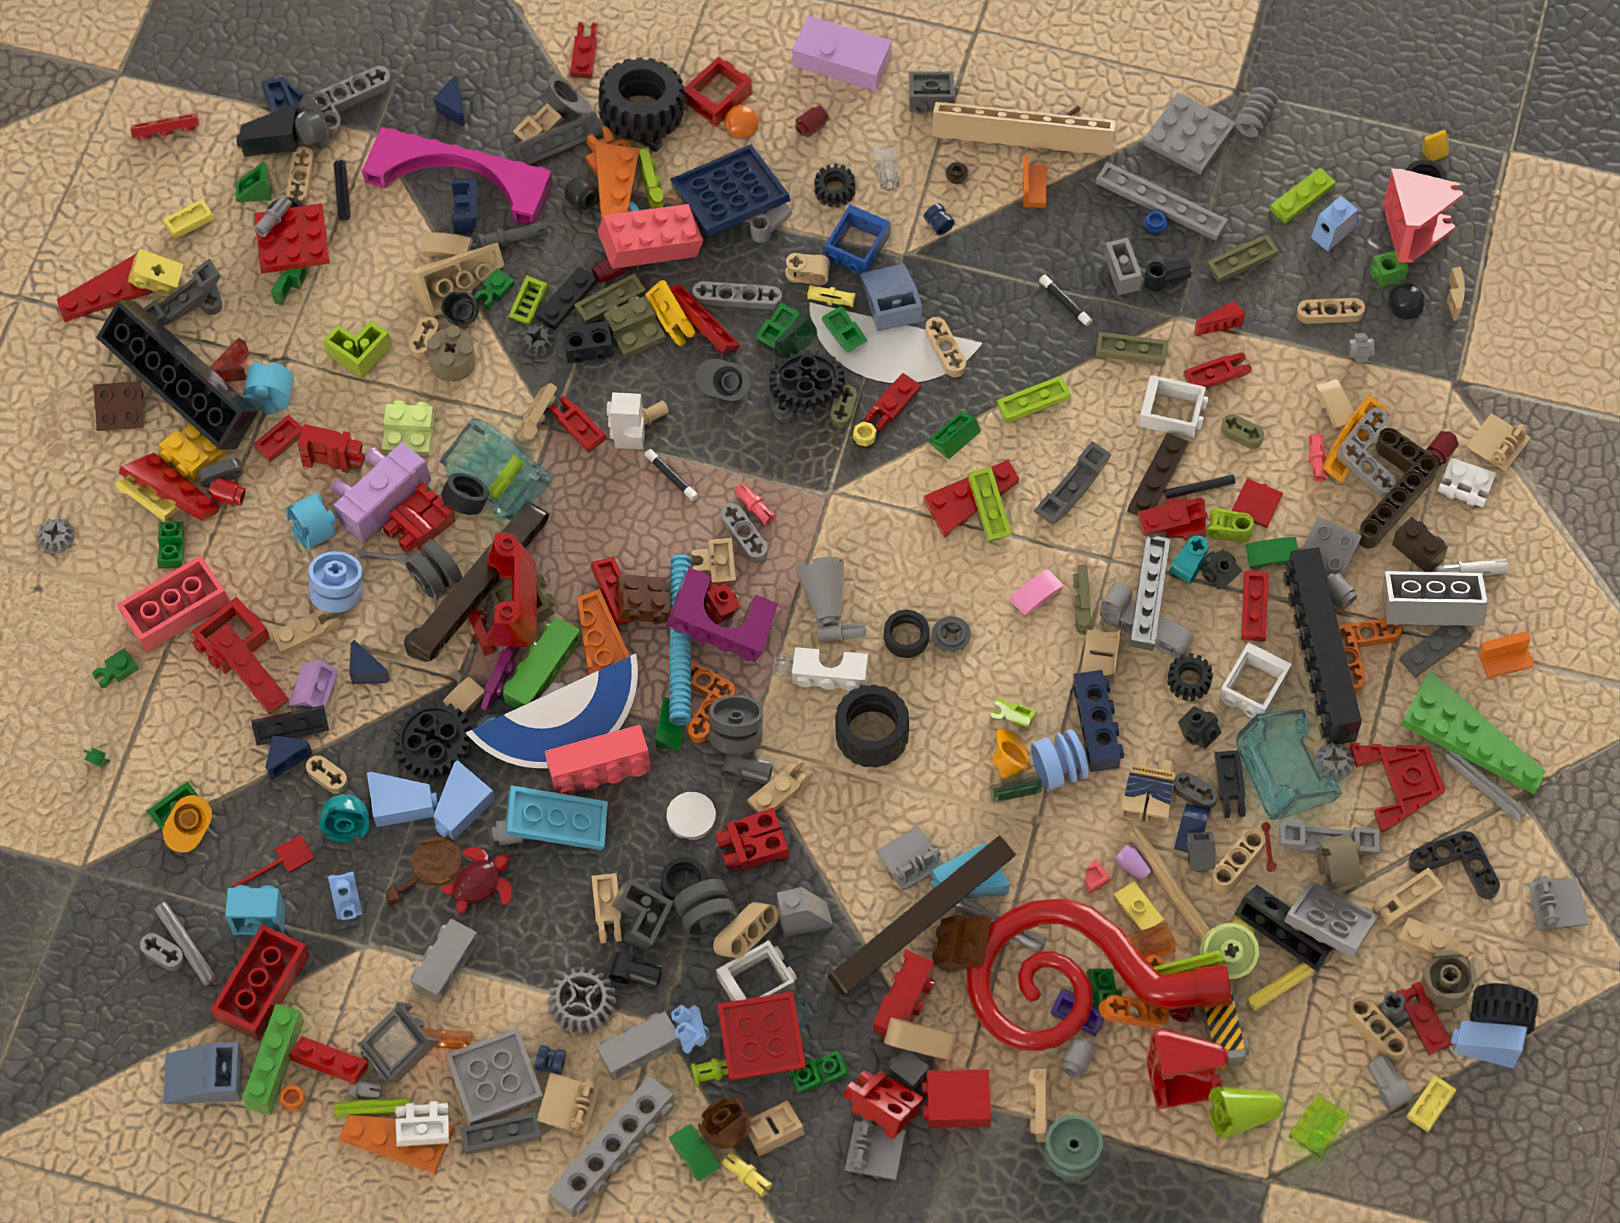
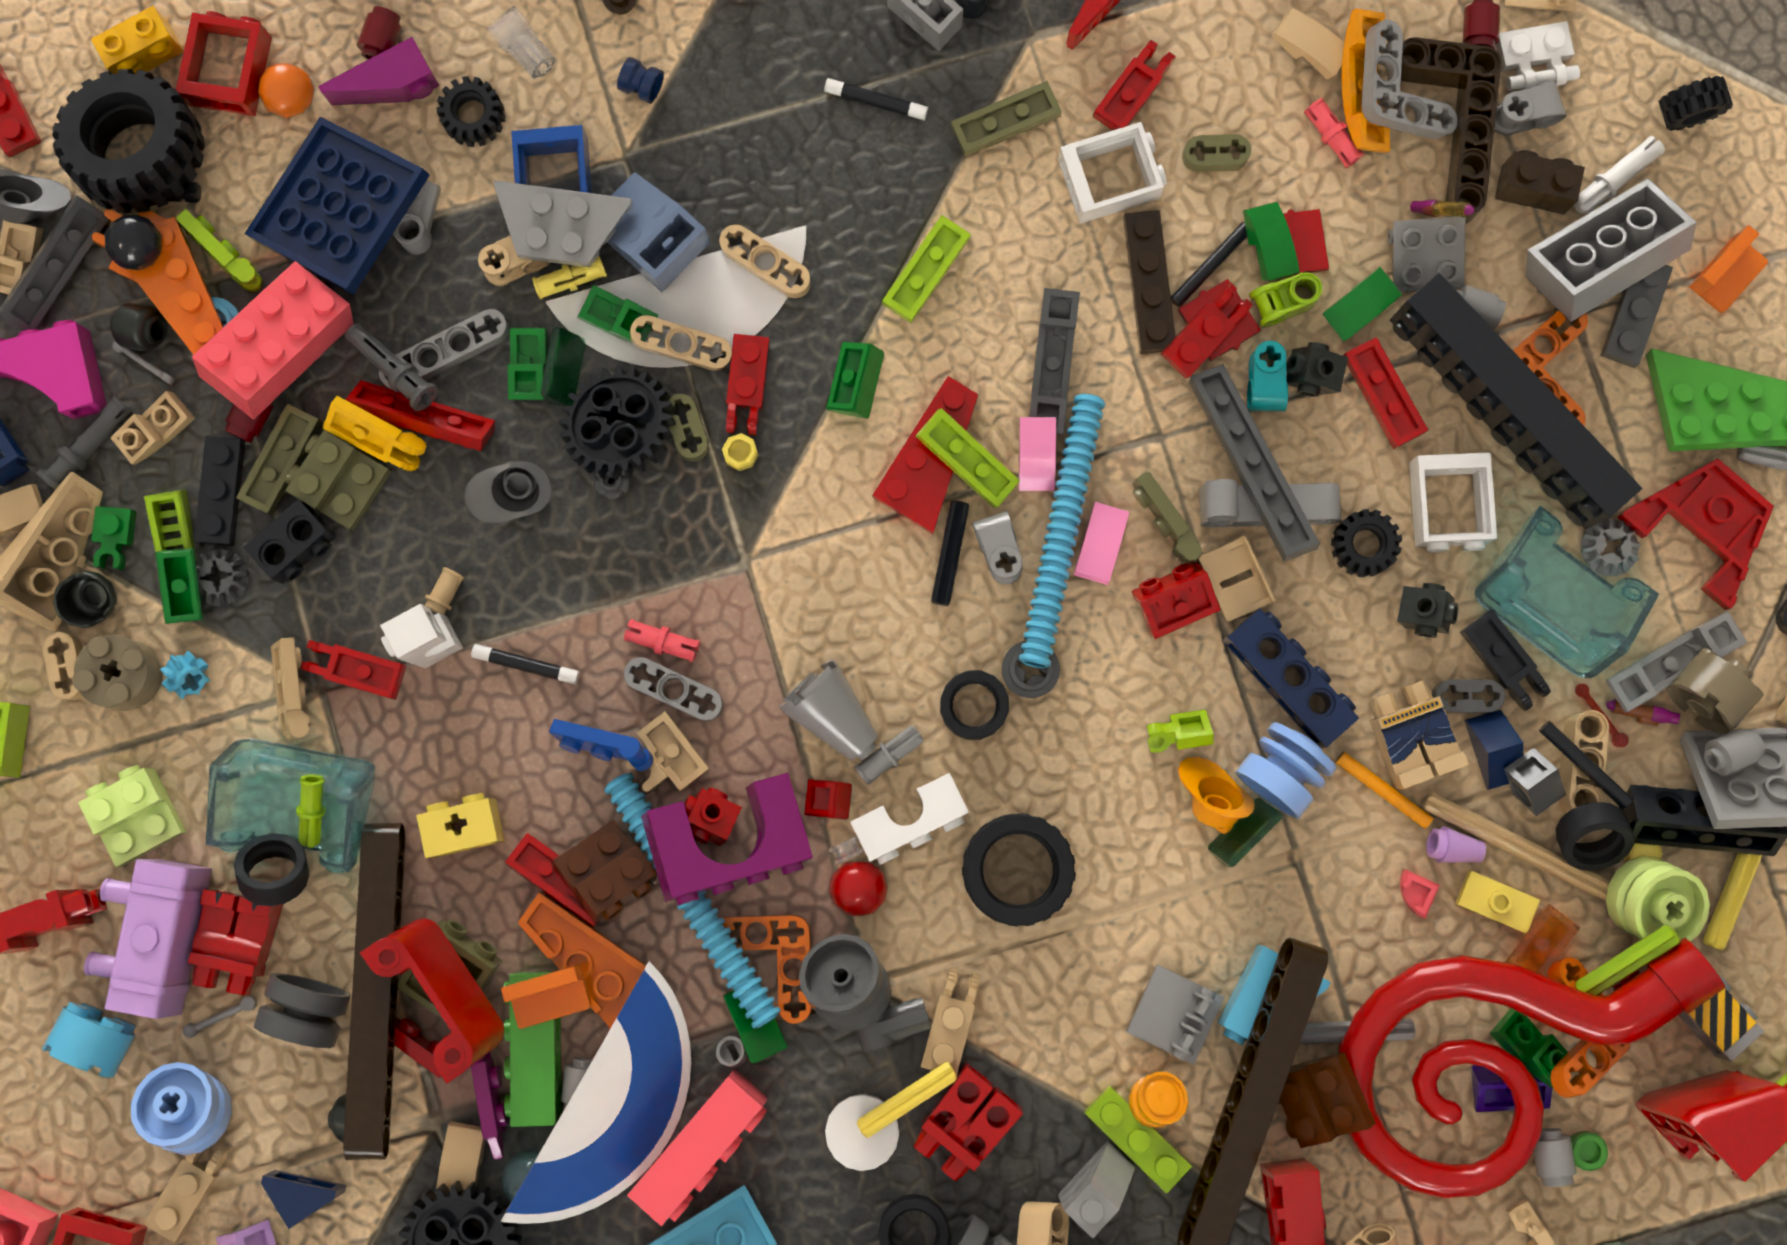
camera: 30 degrees left, 20 degrees up
(490, 379) = (185, 674): none -> medium azure gear
(513, 329) = (179, 585): none -> green slope
(550, 249) = (153, 429): none -> tan slope
(570, 634) = (548, 996): none -> orange panel
(576, 224) = (117, 348): none -> light grey hinge
(579, 533) = (481, 830): none -> light yellow brick
(609, 147) = (133, 242): none -> black hair
(649, 725) = (726, 1055): none -> light grey hinge
(680, 55) = (138, 43): none -> yellow brick
(686, 531) = (601, 744): none -> blue plate
(705, 291) = (402, 376): none -> dark grey pin
(727, 807) = (906, 1099): none -> light yellow axle
(776, 690) = (858, 888): none -> red hair
(791, 636) = (828, 799): none -> red slope
(802, 145) = (386, 78): none -> magenta slope
(844, 262) = (559, 222): none -> light grey wing
(844, 911) = (1138, 1141): none -> lime plate
(853, 352) = (657, 327): none -> tan beam
(869, 891) = (1158, 1099): none -> light orange wheel
(946, 550) = (950, 553): none -> black axle
(976, 562) = (998, 542): none -> light grey piece
(1017, 570) = (1062, 530): none -> medium azure piece
(1030, 525) = (1037, 453): none -> bright pink slope
(1059, 645) = (1176, 599): none -> red bracket
(1101, 1070) = (1589, 1150): none -> bright green tile
(1112, 812) = (1384, 790): none -> light orange bar
(1204, 910) = (1591, 818): none -> black tyre
(1235, 853) = (1586, 765): none -> black bar
(1240, 489) = (1273, 241): none -> green slope
(1295, 860) = (1646, 714): none -> piece
(1325, 893) = (1733, 751): none -> light grey brick
(1351, 526) = (1442, 208): none -> clear yellow piece
(1442, 506) = (1530, 109): none -> light grey piece
(1539, 552) = (1695, 103): none -> black tyre

